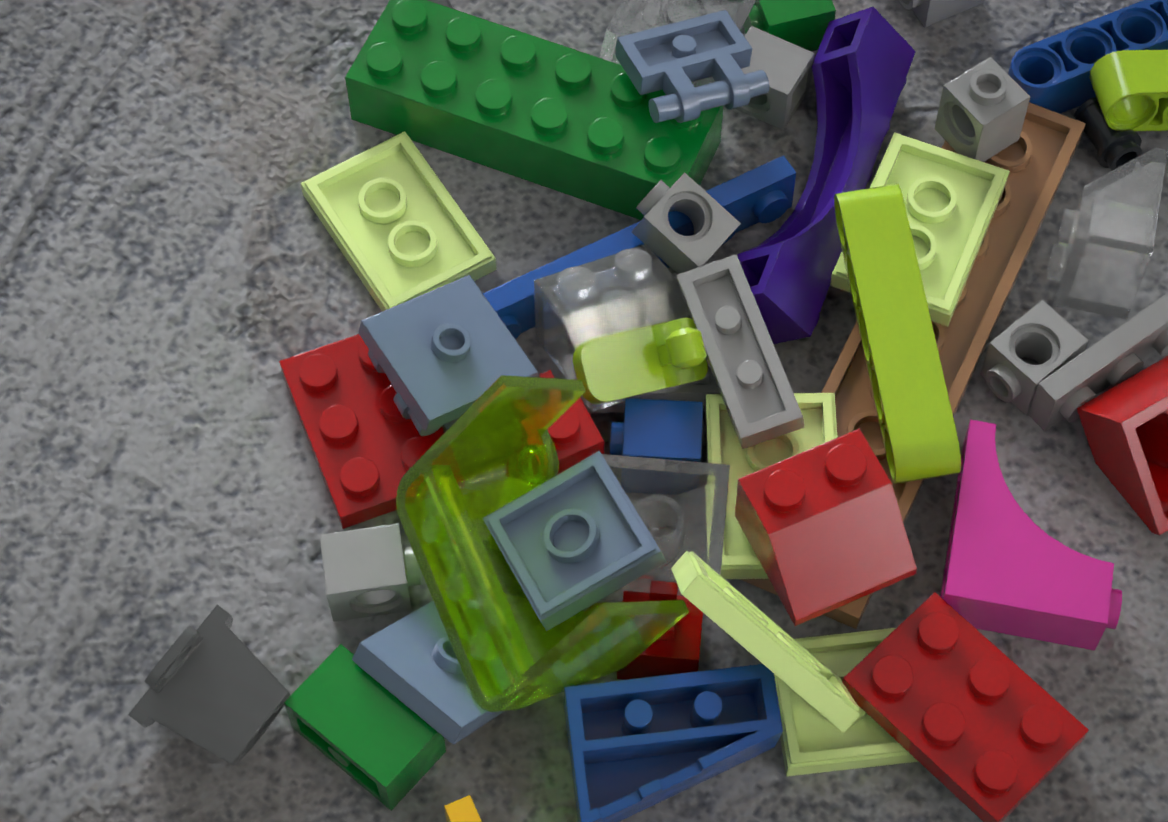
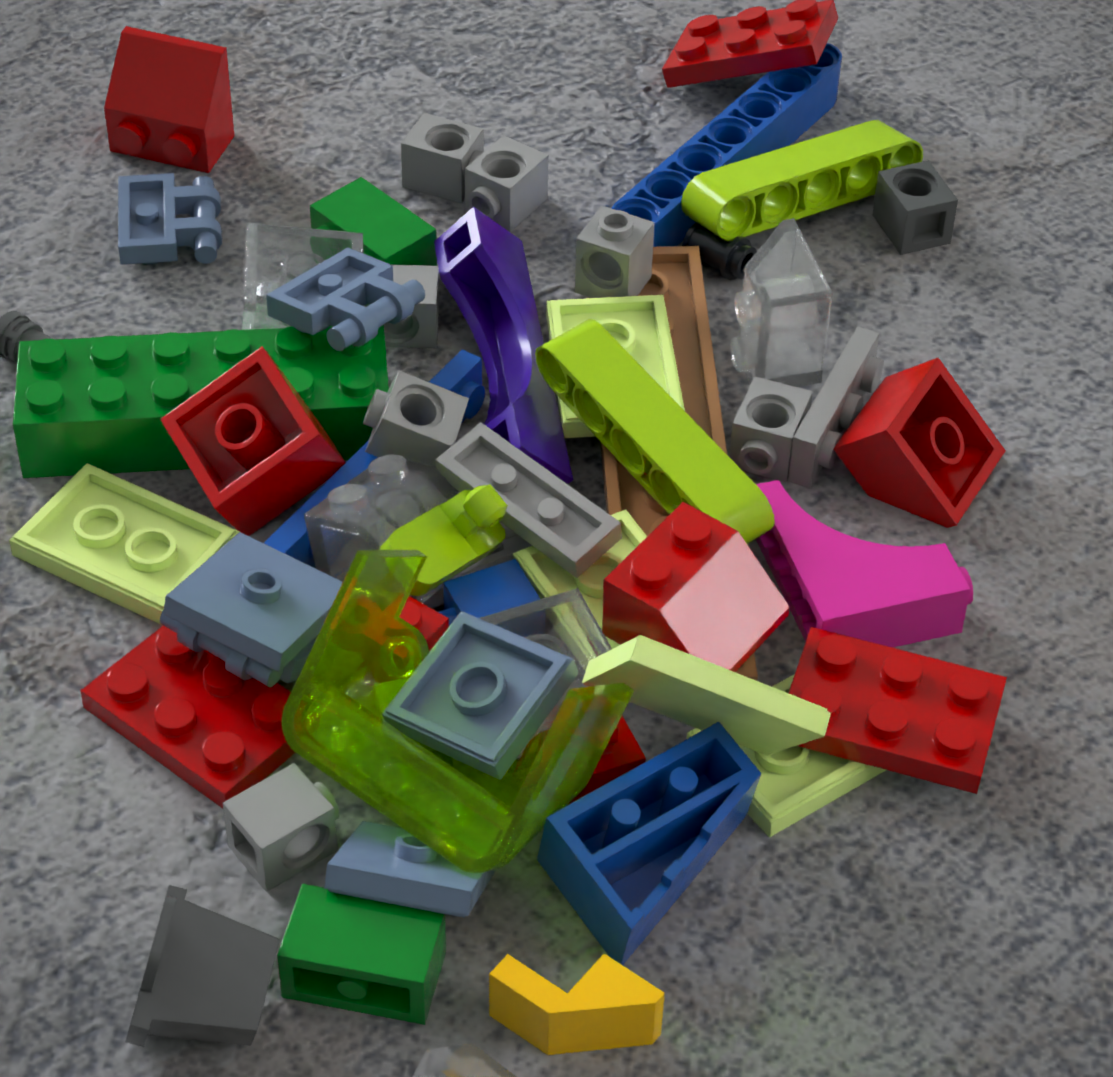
camera: 30 degrees left, 15 degrees down
(537, 182) = (252, 443): none -> red slope

